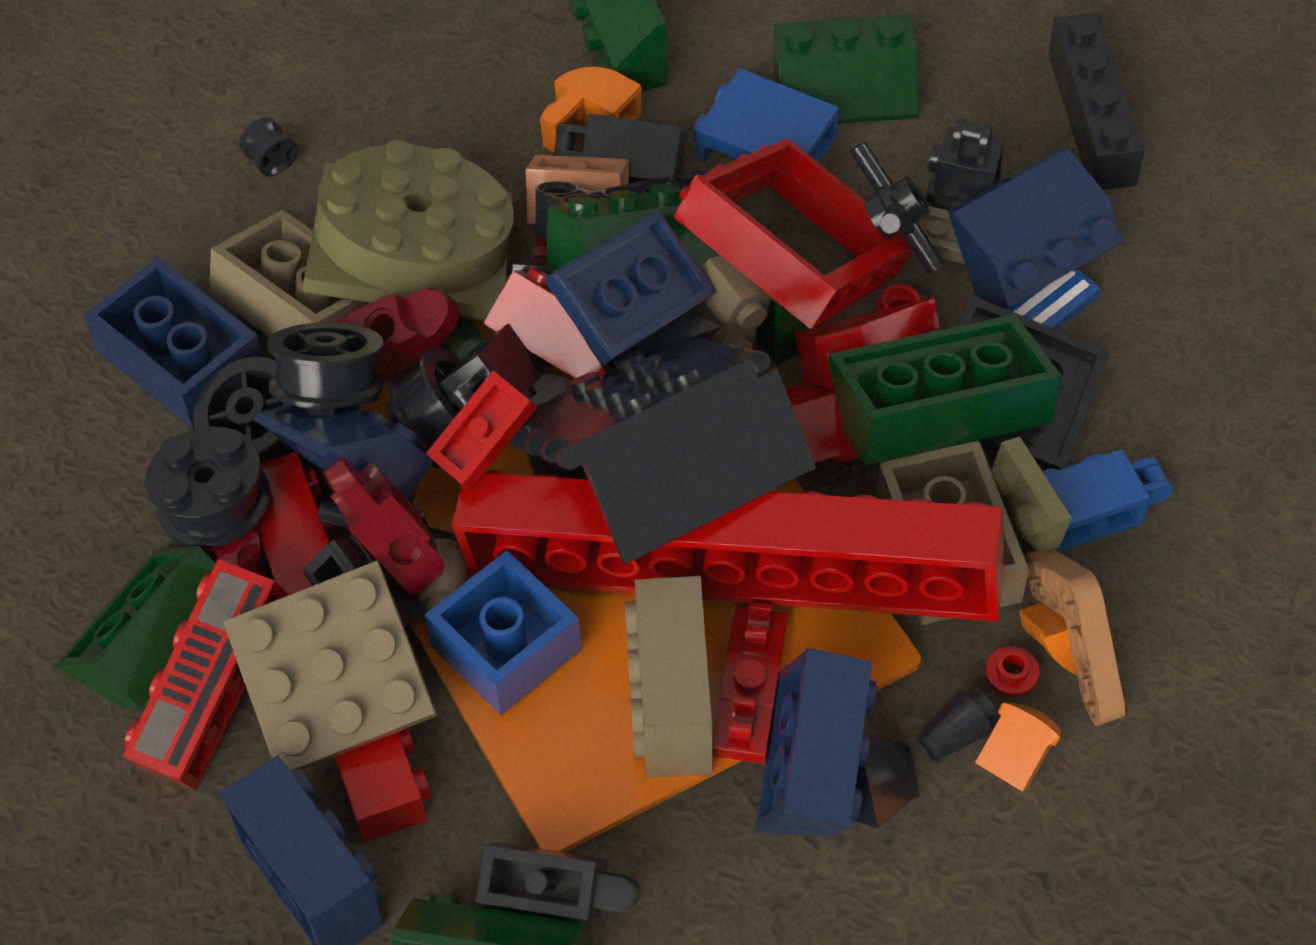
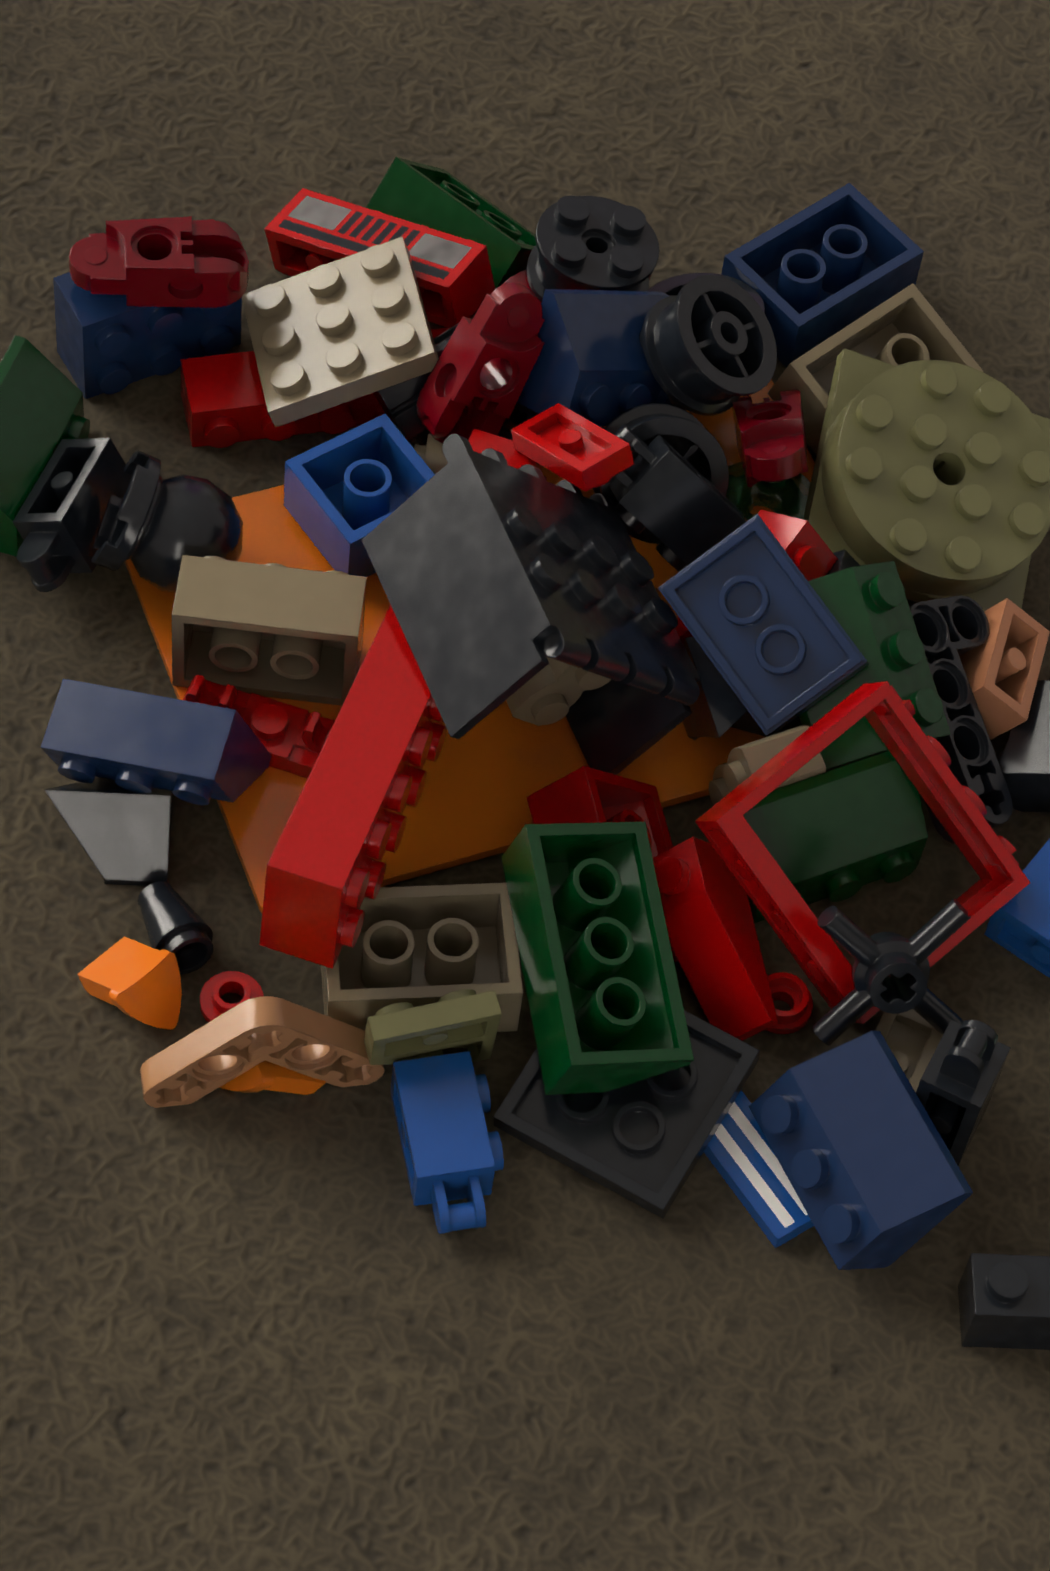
camera: 90 degrees right, 0 degrees up
(303, 848) = (163, 262): none -> dark red piece
(578, 782) = (164, 521): none -> black tile

